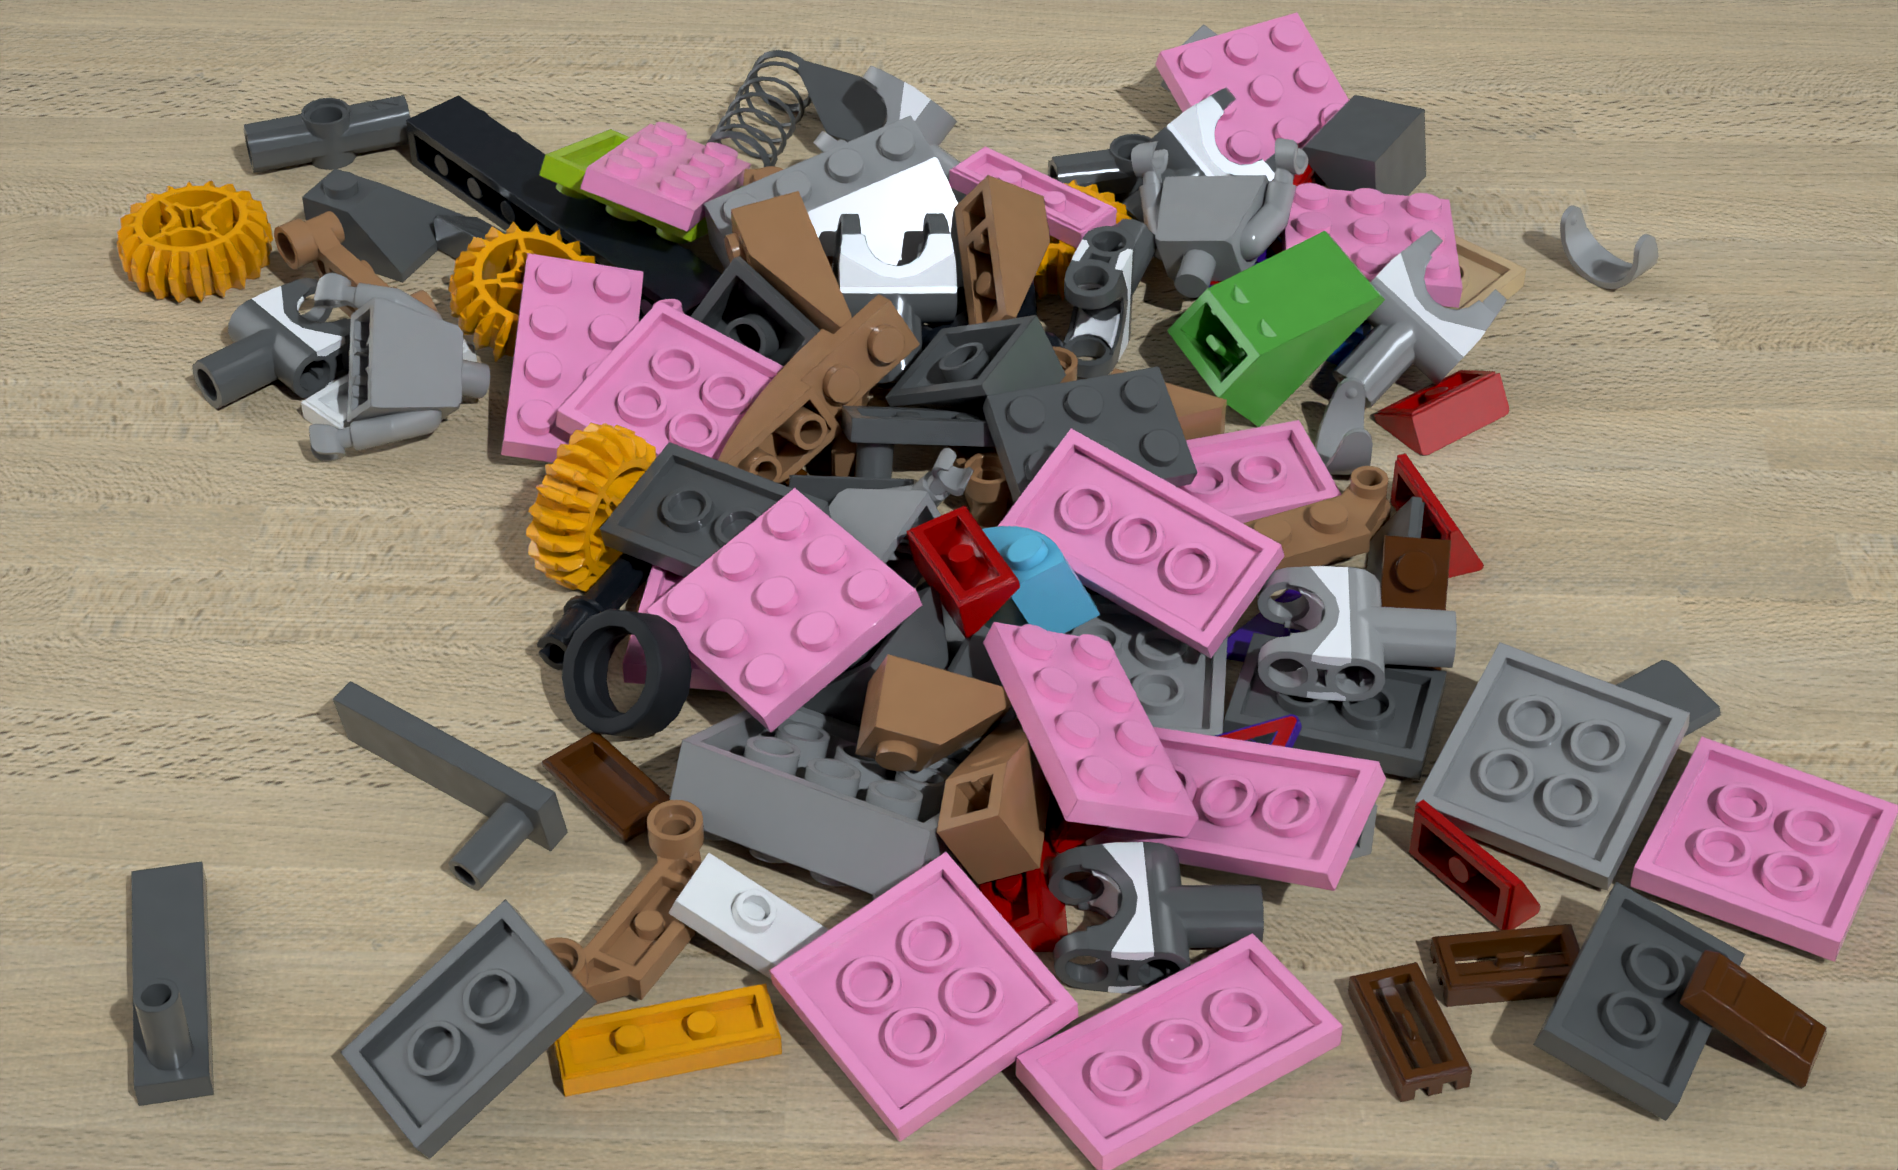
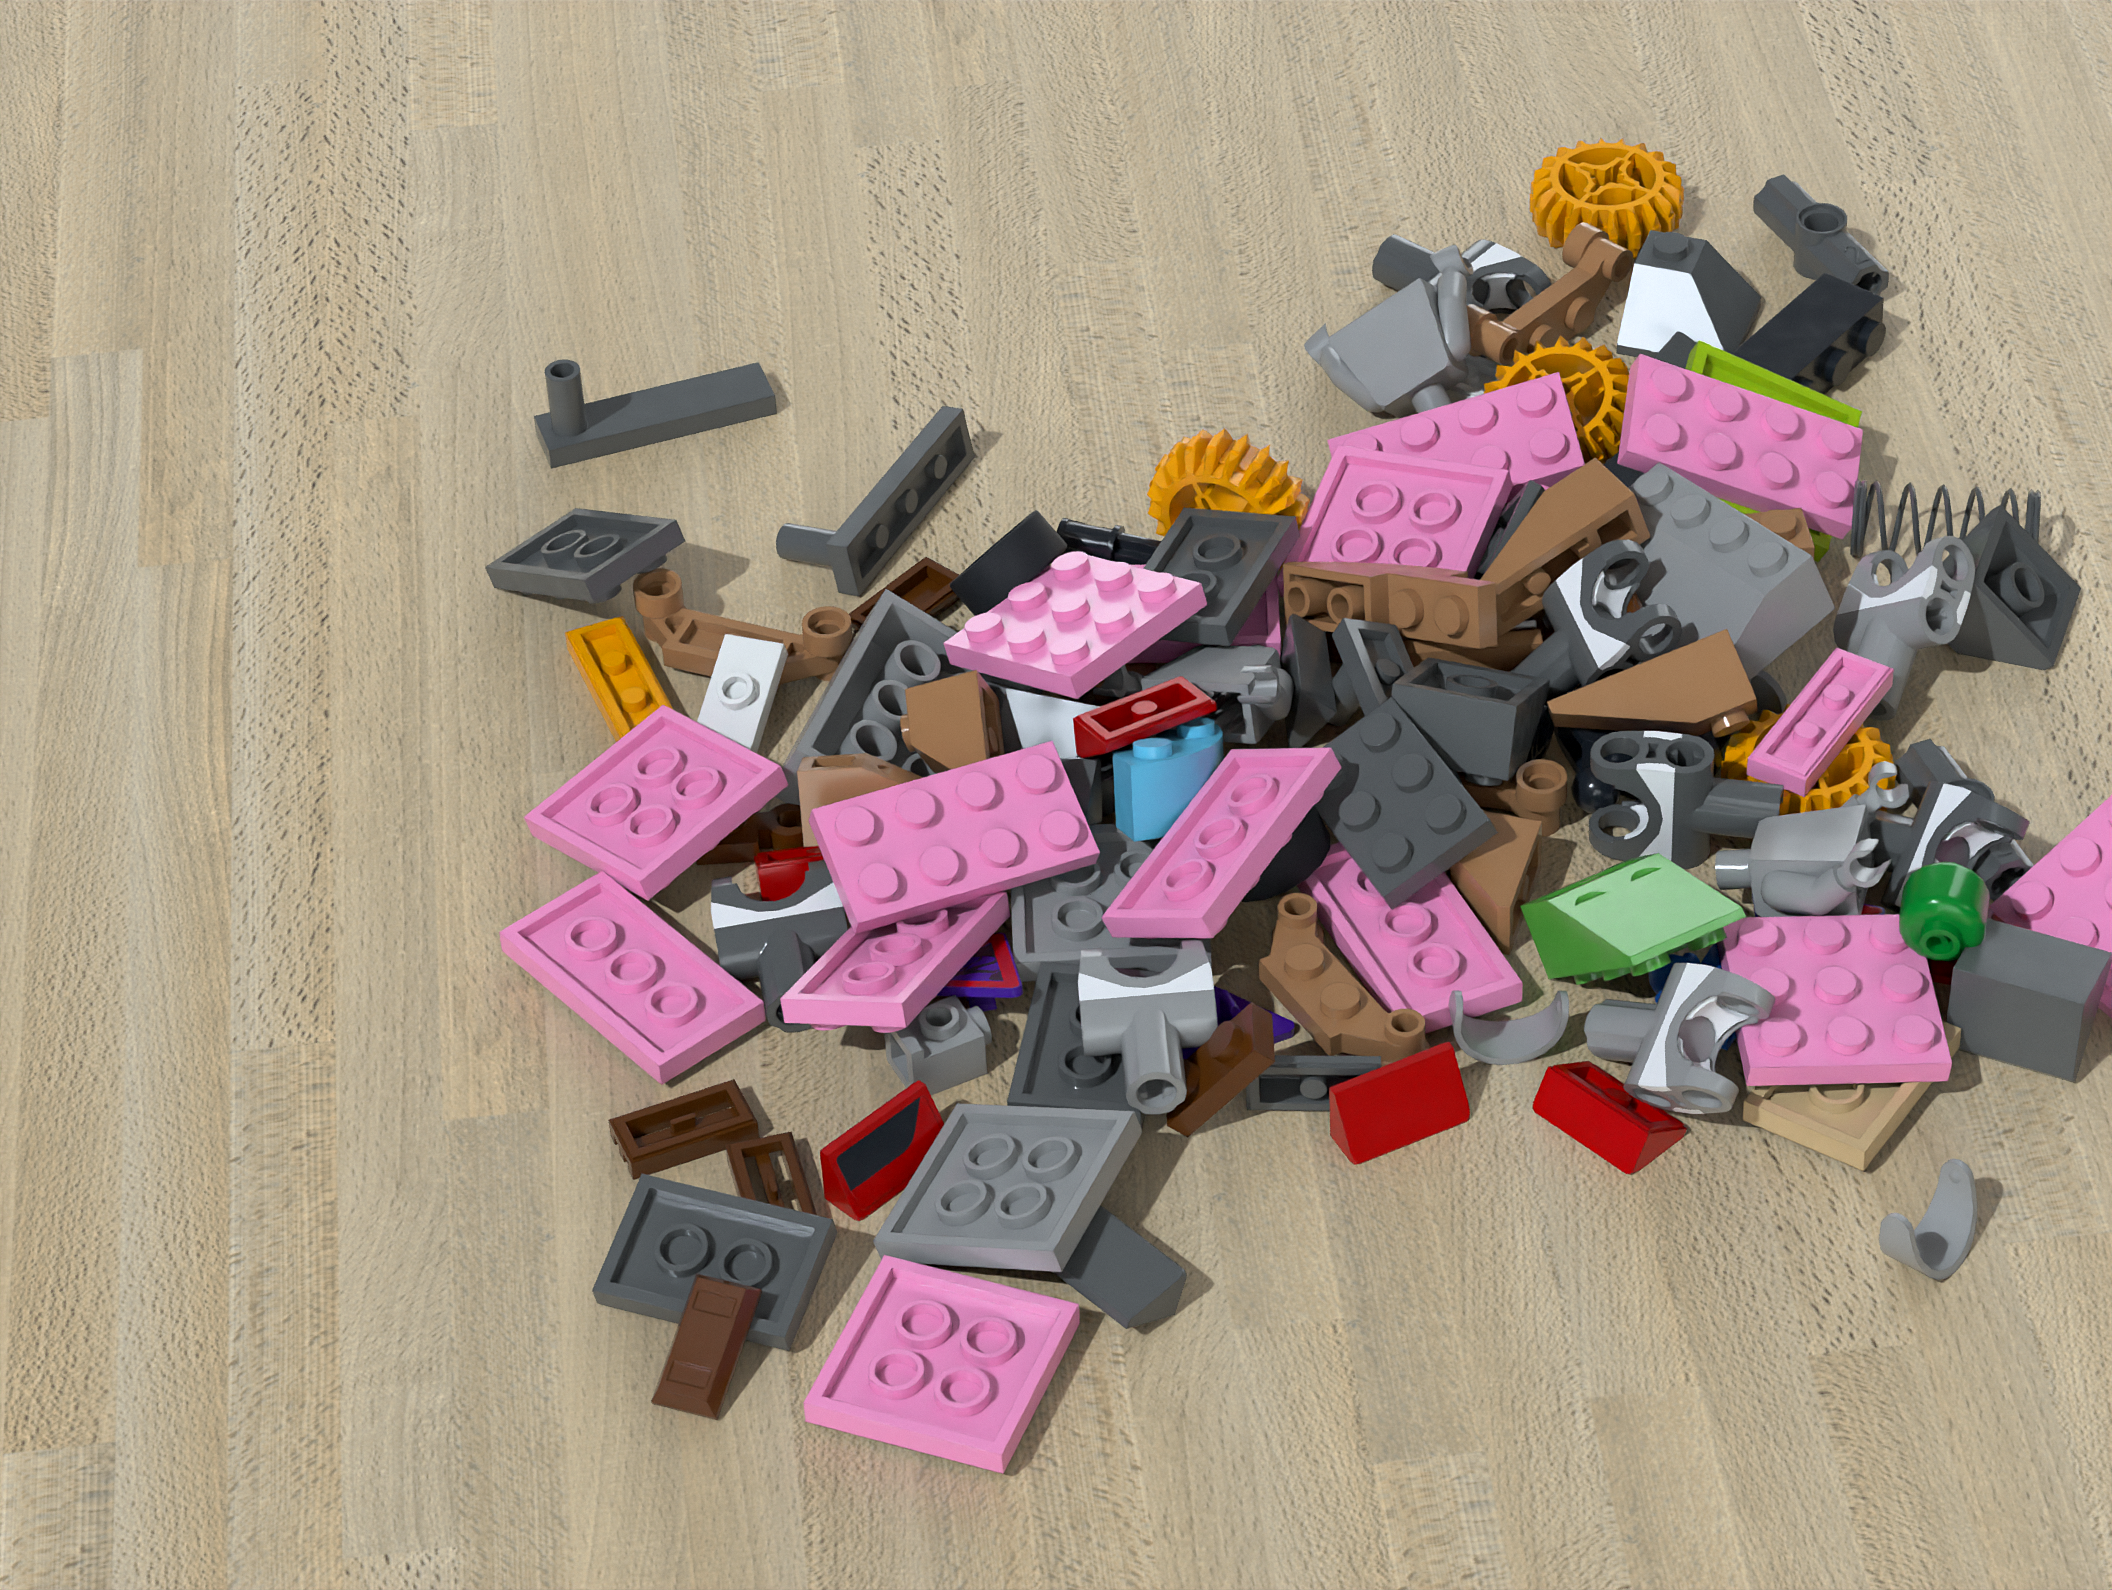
camera: 85 degrees right, 0 degrees up
(1325, 146) = (1943, 910): none -> green head

